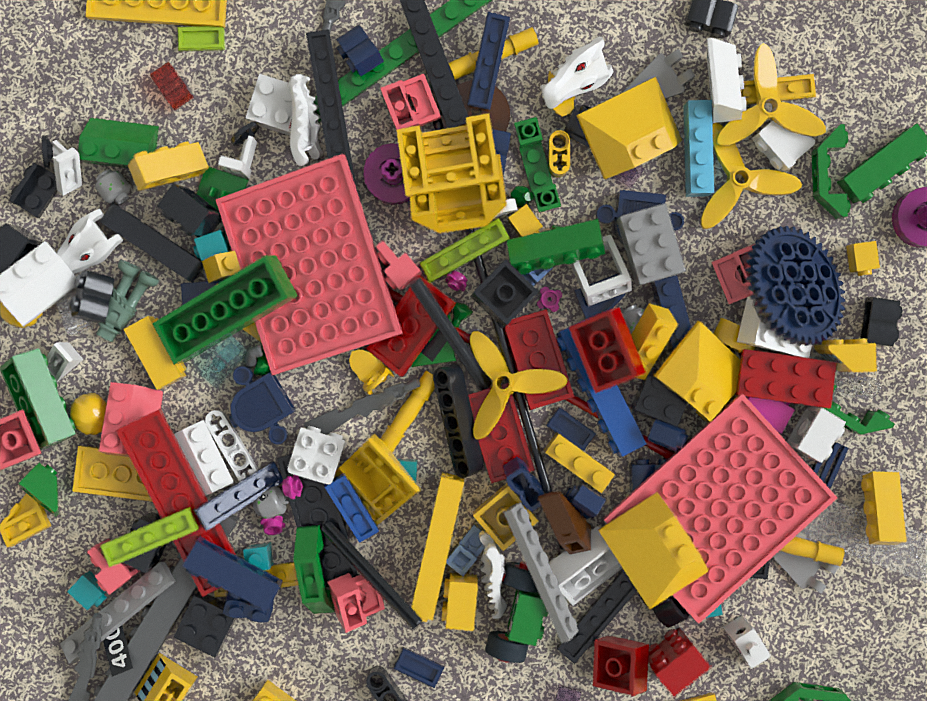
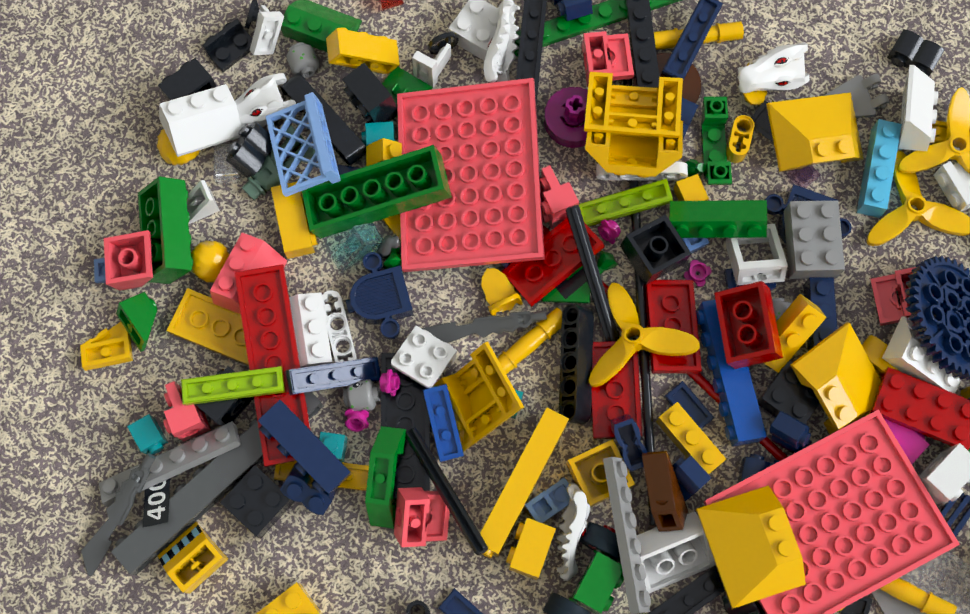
camera: 20 degrees right, 15 degrees down
(152, 269) = (321, 143): none -> light blue fence

